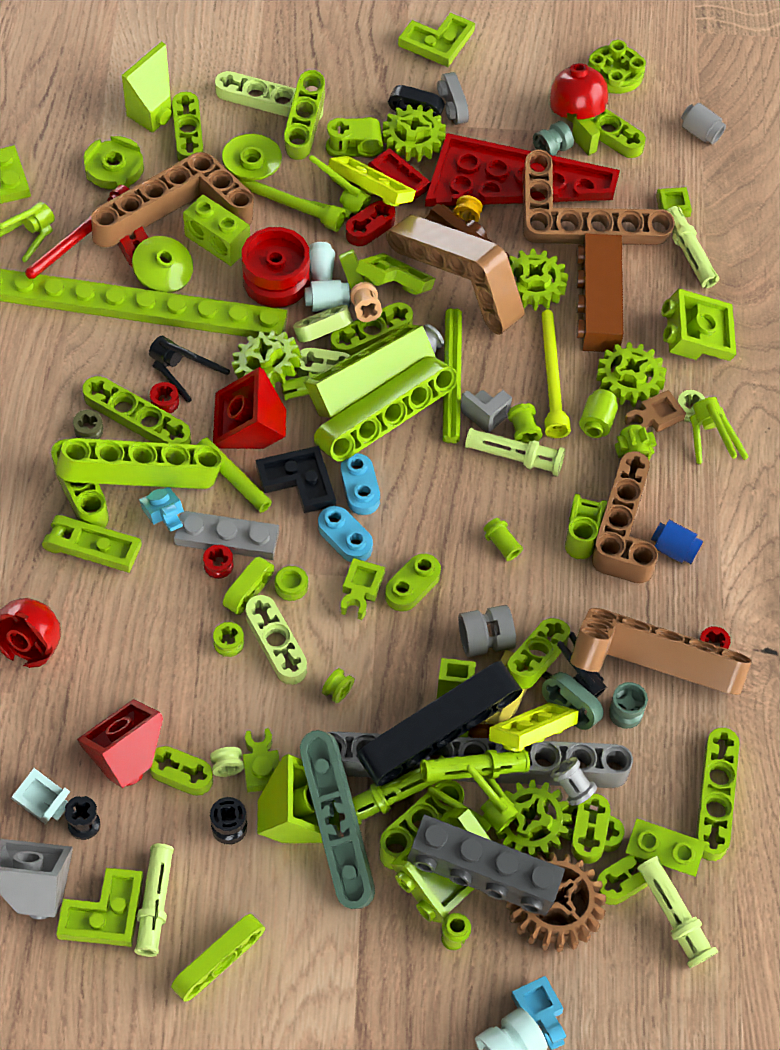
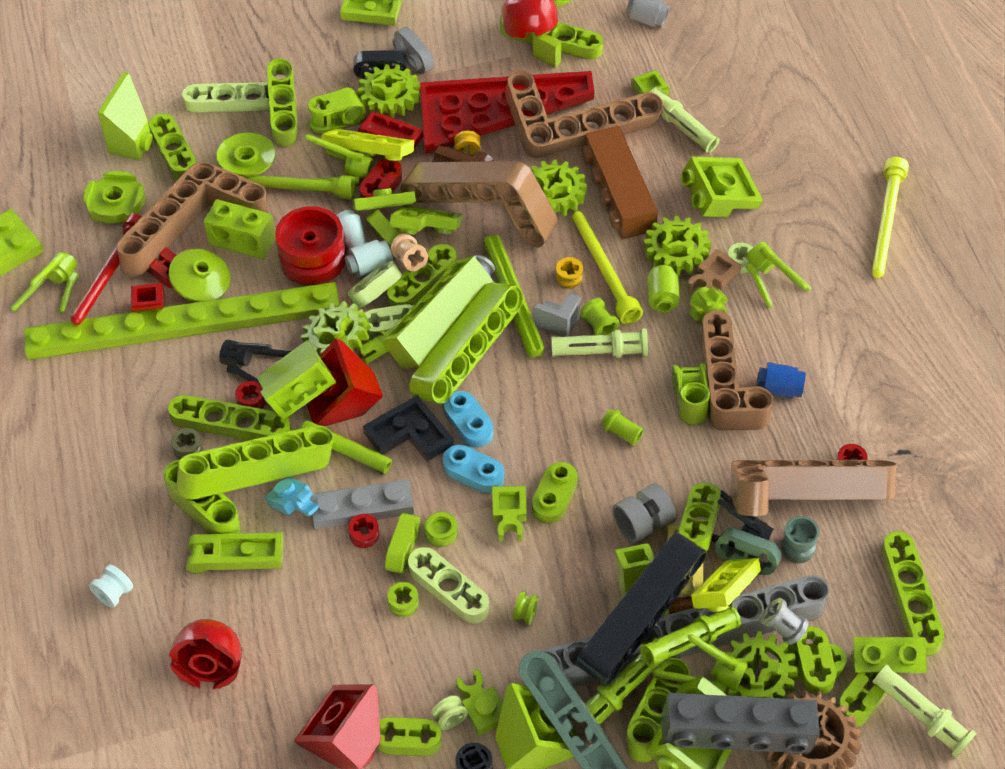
camera: 15 degrees left, 5 degrees down
(105, 271) = (147, 297): none -> red slope
(207, 396) = (295, 380): none -> lime bracket
(362, 241) = (382, 199): none -> lime plate
(512, 377) = (575, 266): none -> yellow bush
(555, 139) = (522, 57): sand green wheel -> none

